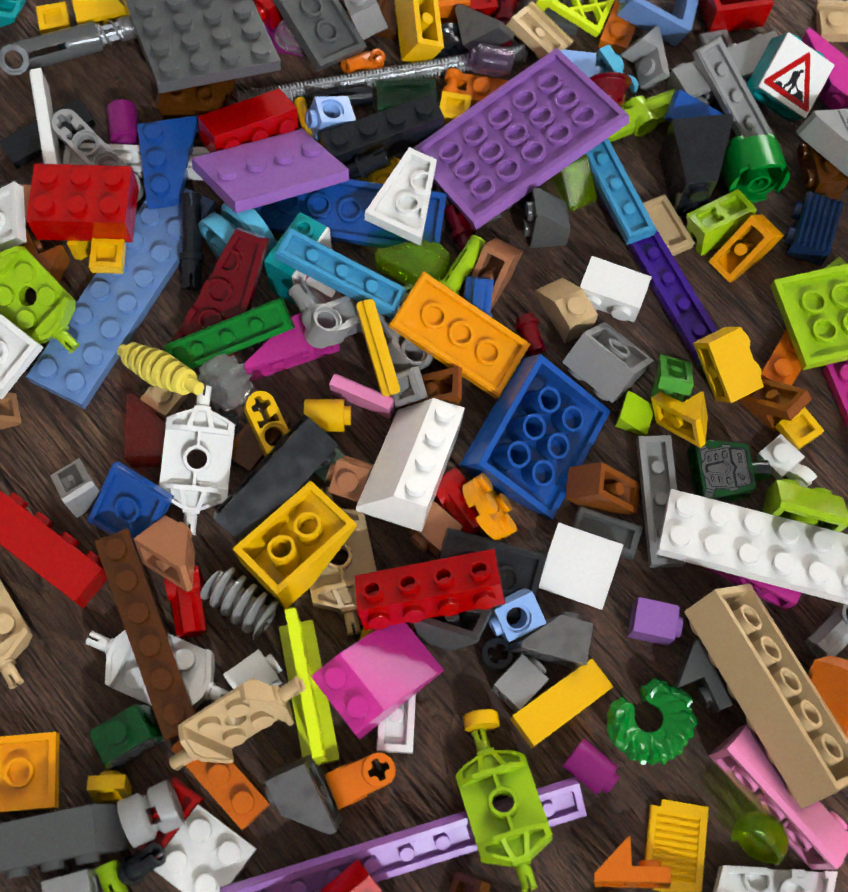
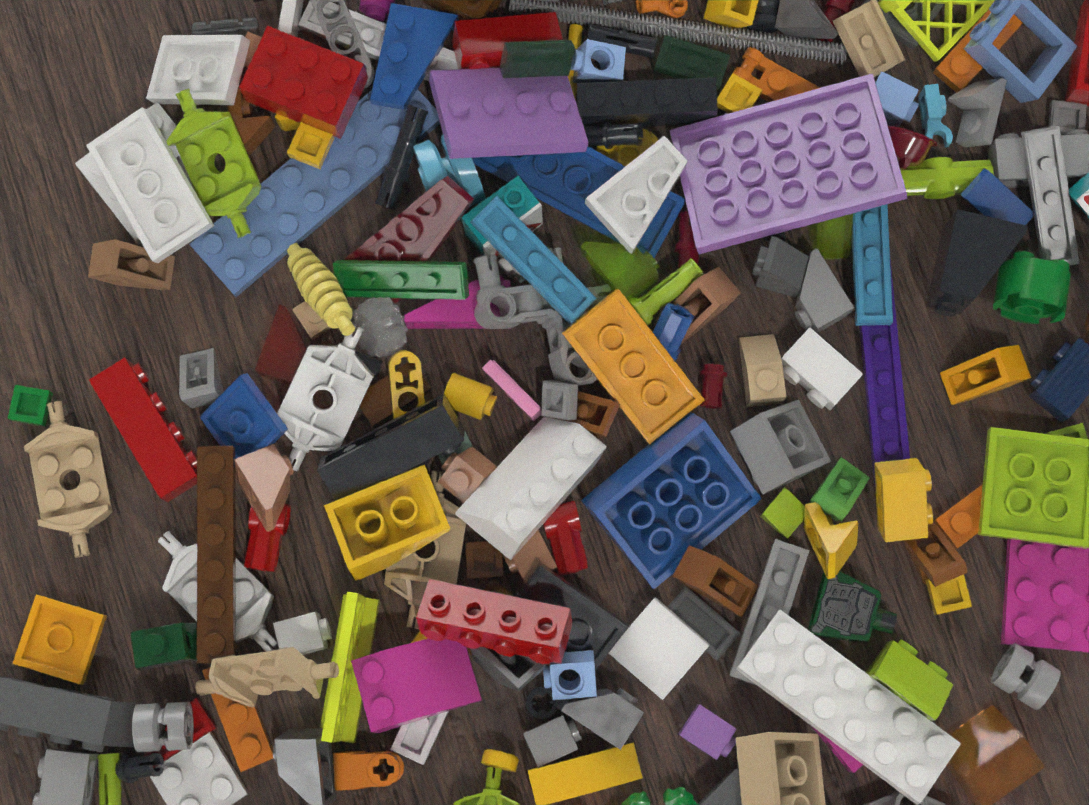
camera: 30 degrees right, 10 degrees up
(108, 787) = (135, 685): yellow plate -> none
(239, 602) = (315, 556): light grey piece -> none
(278, 123) = (537, 58): none -> clear green plate
(377, 347) = (542, 352): yellow axle -> none
(395, 548) = (483, 561): none -> reddish brown plate
(491, 60) = (798, 56): clear purple brick -> none
(491, 507) = (591, 558): light orange plate -> none
(589, 232) = (820, 297): none -> light grey slope
(669, 224) = (912, 315): tan tile -> none
(718, 220) = (969, 334): lime hinge -> none
(785, 460) = (916, 618): white plate -> none

